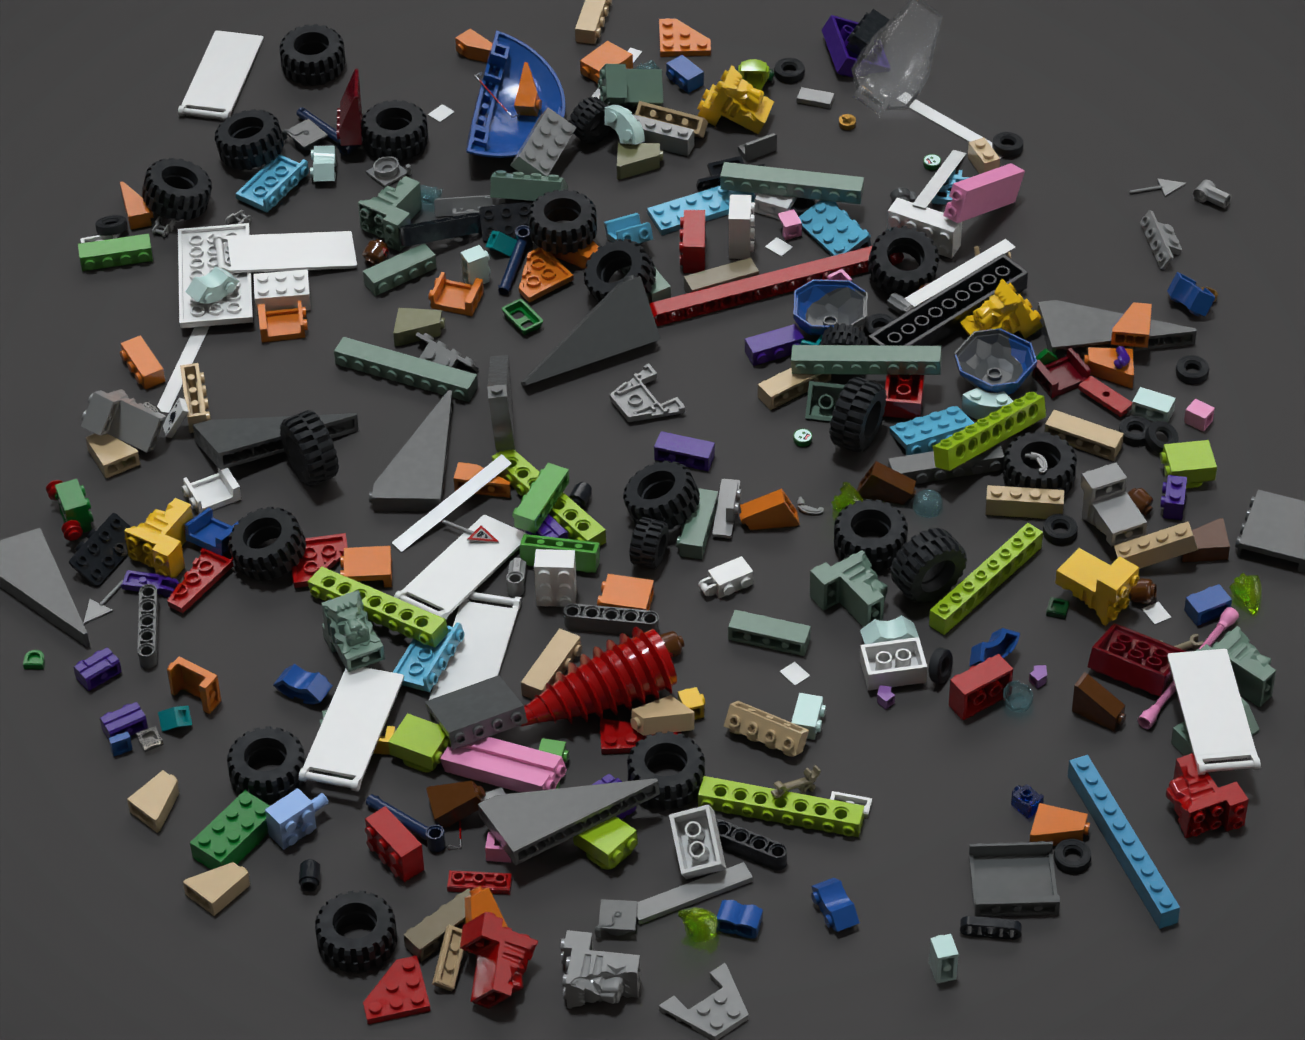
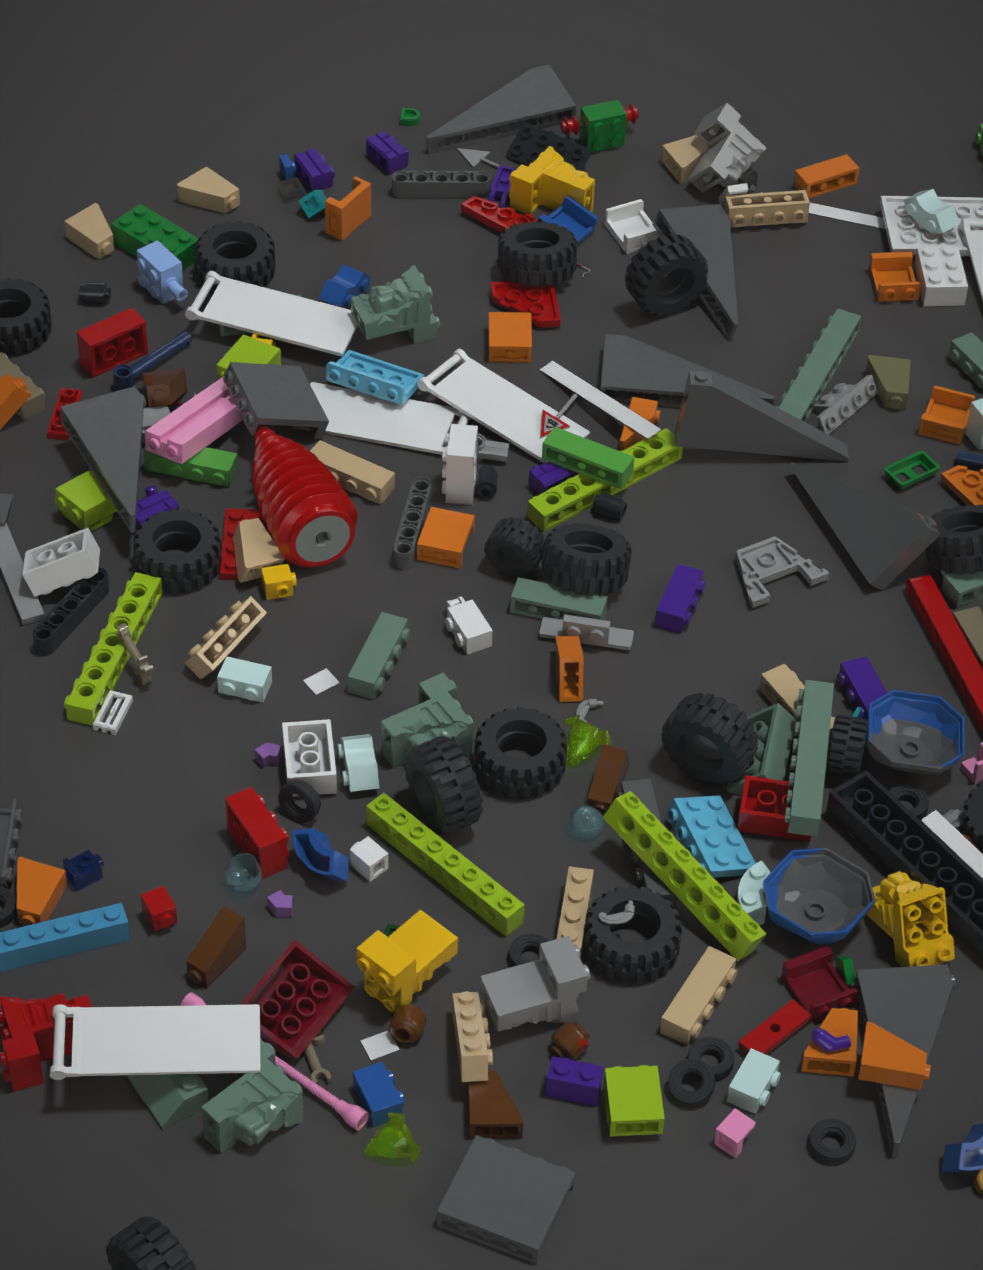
camera: 90 degrees right, 0 degrees up
(382, 607) = (442, 337): lime brick -> none
(586, 553) = (513, 480): bright green brick -> none
(673, 643) = (367, 567): reddish brown head -> none
(986, 623) = (368, 858): none -> white brick
(1062, 744) = (159, 908): none -> red brick

